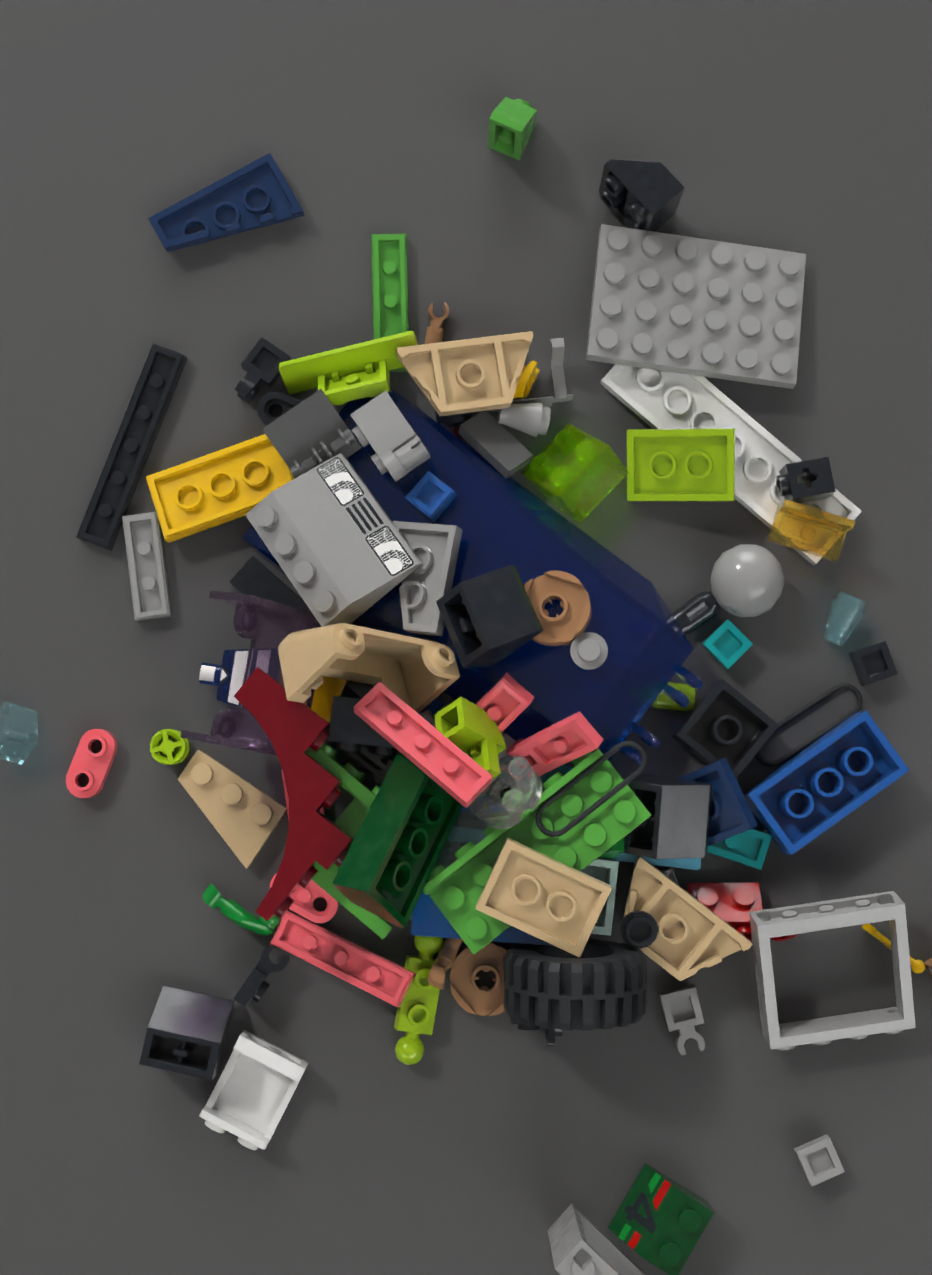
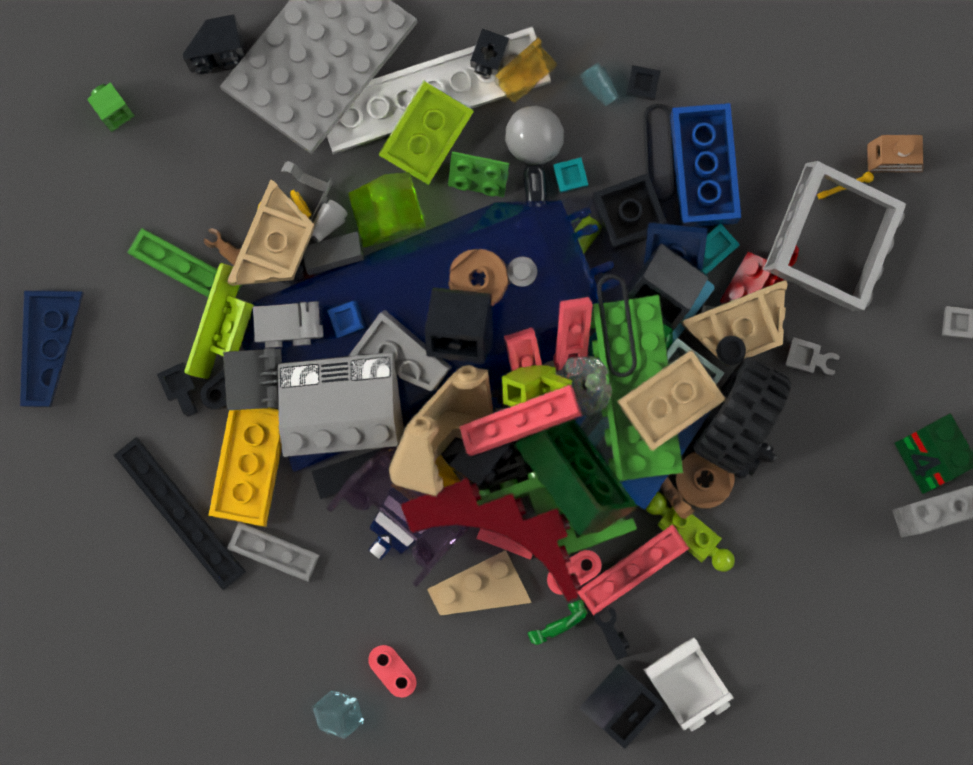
camera: 55 degrees left, 0 degrees up
(163, 748) = (410, 608): lime wheel -> none
(669, 545) = (478, 174): none -> bright green hinge

